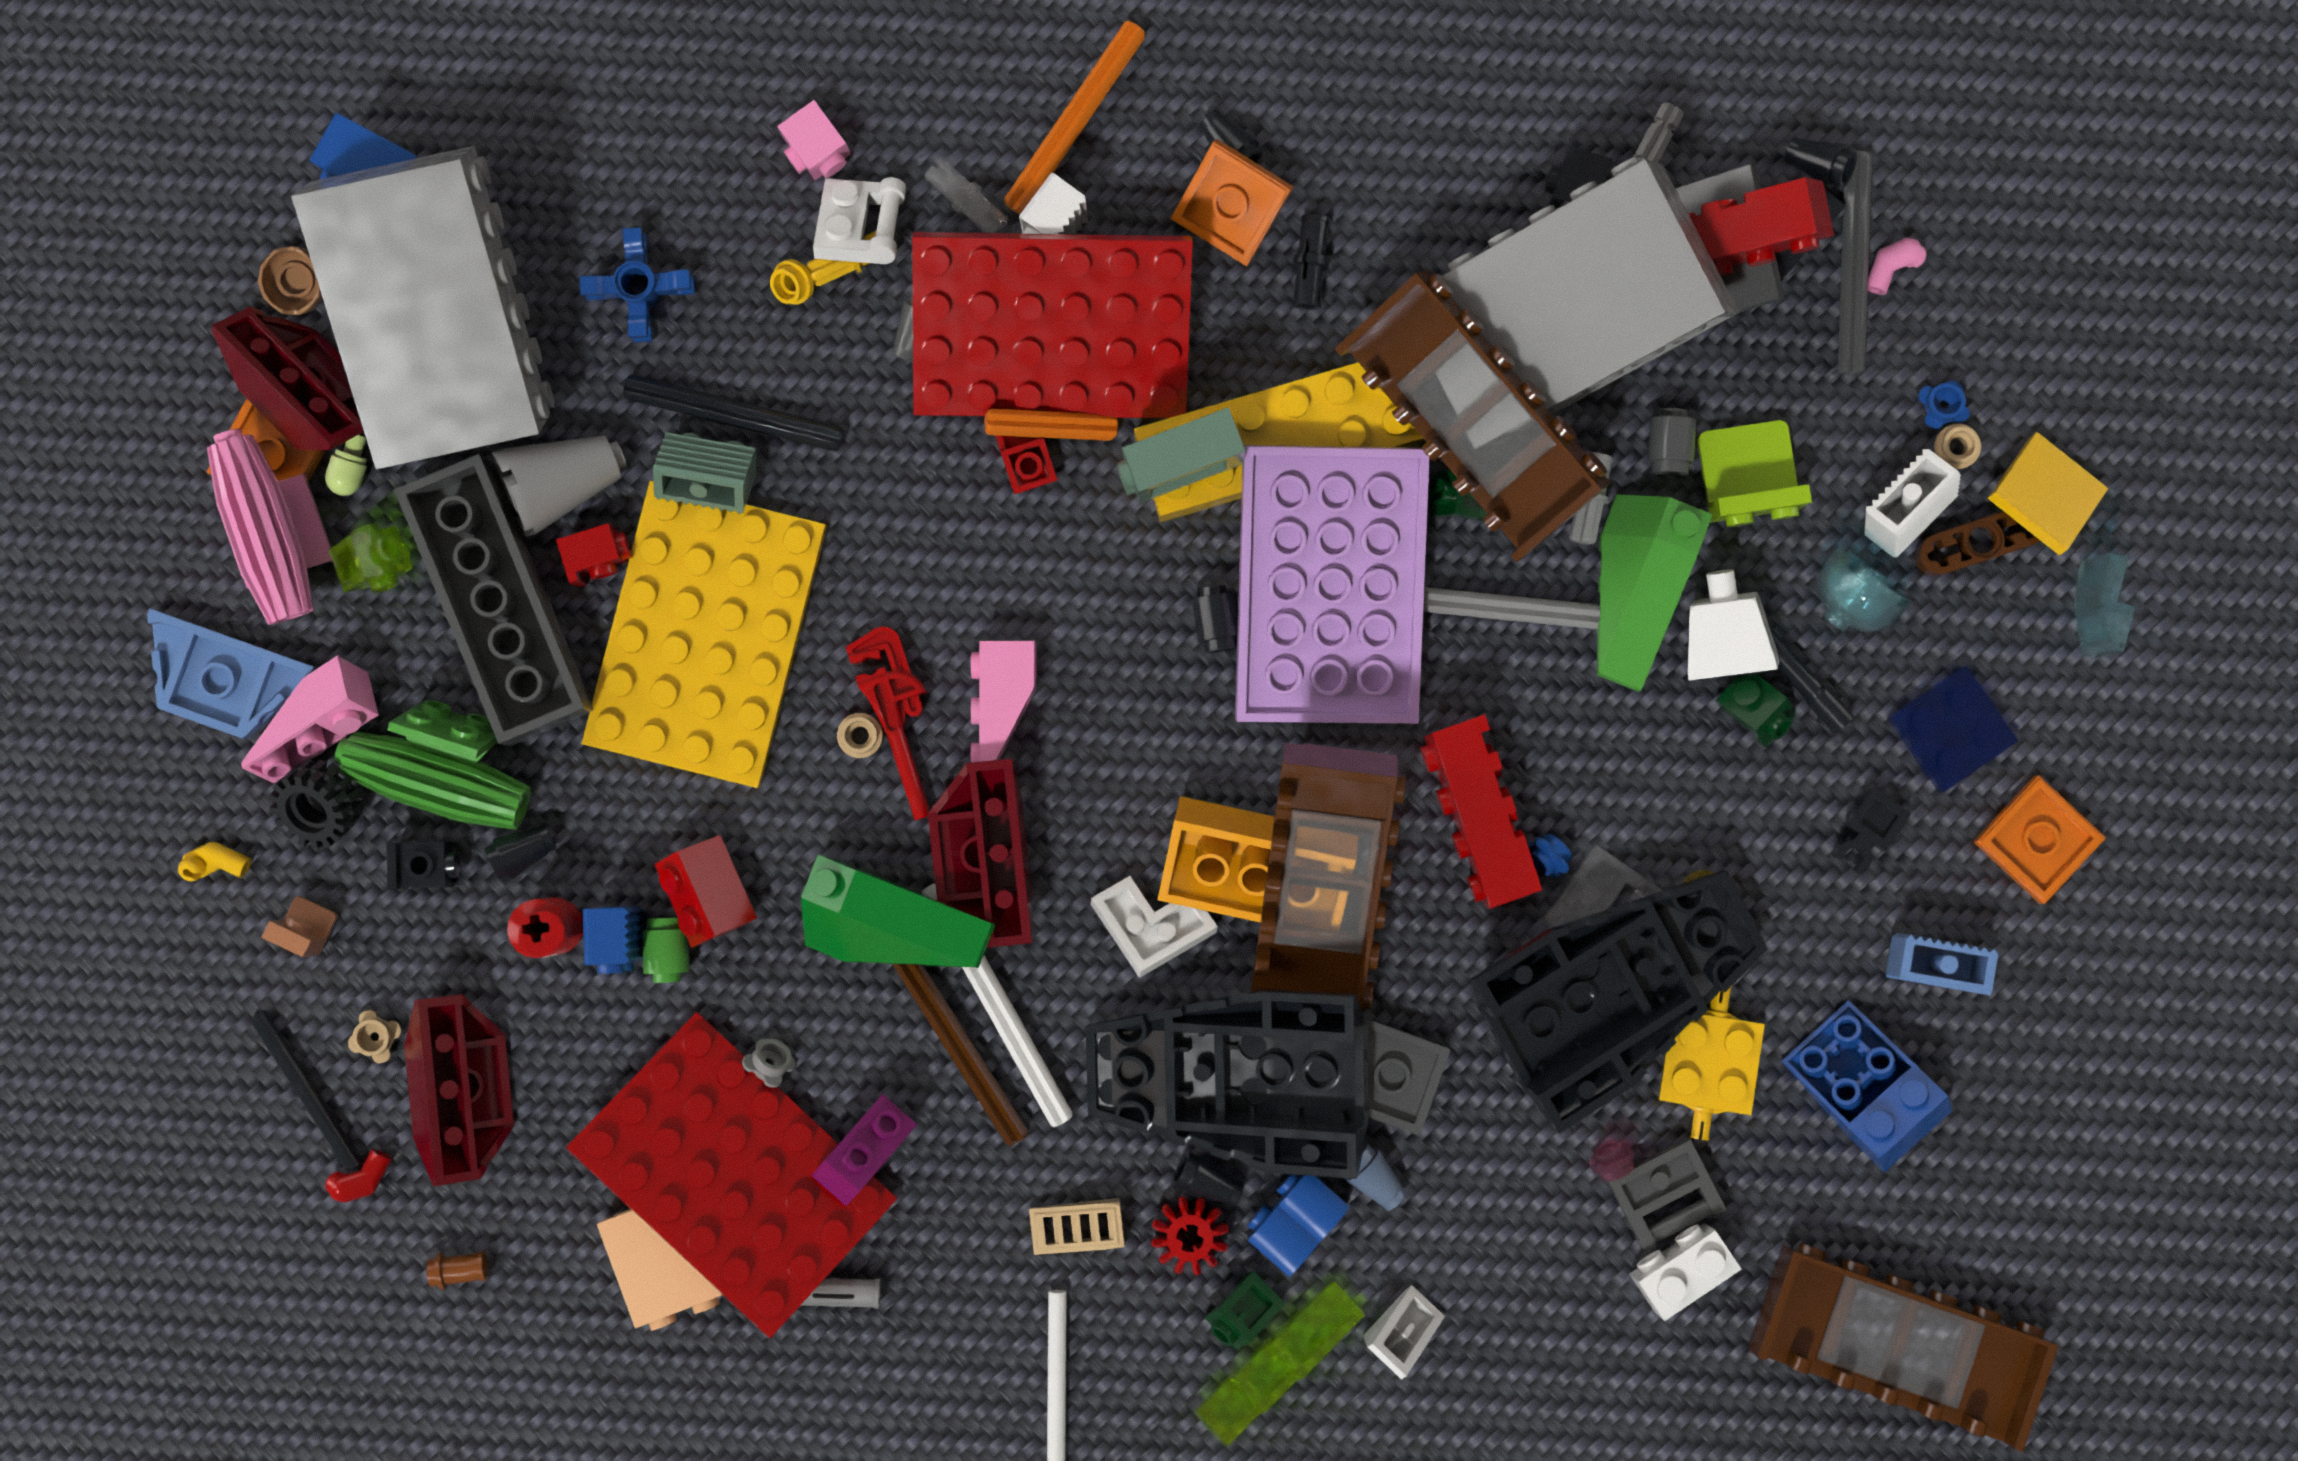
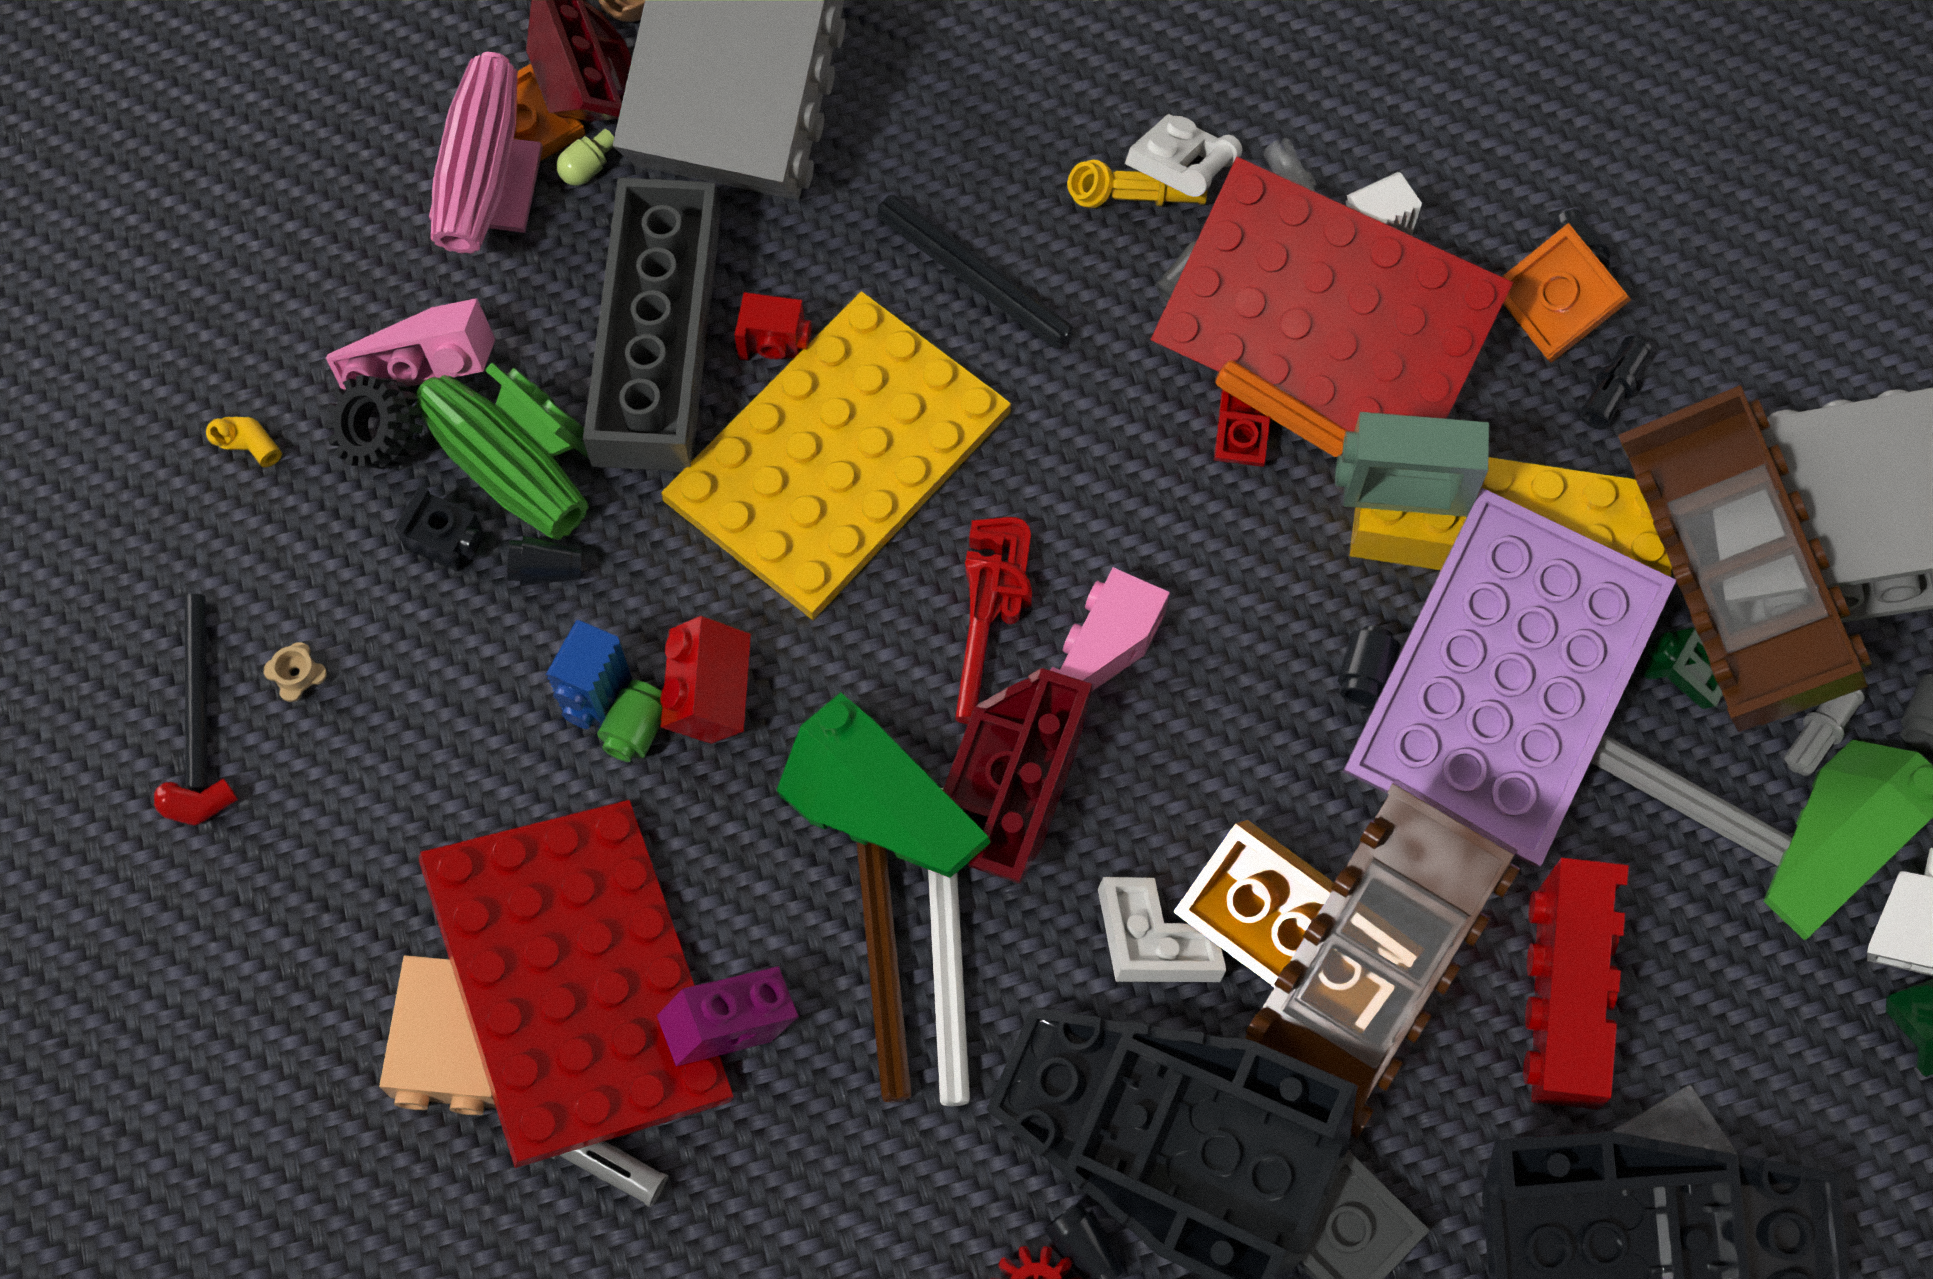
camera: 20 degrees right, 20 degrees down
(219, 676) = (353, 277): medium blue wing -> none
(303, 928) = (291, 534): nougat bracket -> none
(371, 559) = (559, 236): clear neon green brick -> none
(456, 1088) = (347, 750): dark red wedge -> none
(456, 1269) = (233, 941): dark orange pin -> none
(526, 928) = (524, 634): red piece -> none
(556, 477) = (775, 244): light grey cone -> none
(667, 283) = (943, 108): blue pin -> none
(704, 472) = (919, 300): sand green brick -> none
(769, 1061) = (677, 884): light grey plate -> none
(813, 142) = (1173, 77): bright pink brick -> none
(846, 730) = (941, 599): tan plate -> none
(1075, 116) = (1463, 149): orange axle -> none
(1115, 1226) = (961, 1220): tan slope -> none
(1550, 855) = (1633, 1073): blue plate -> none

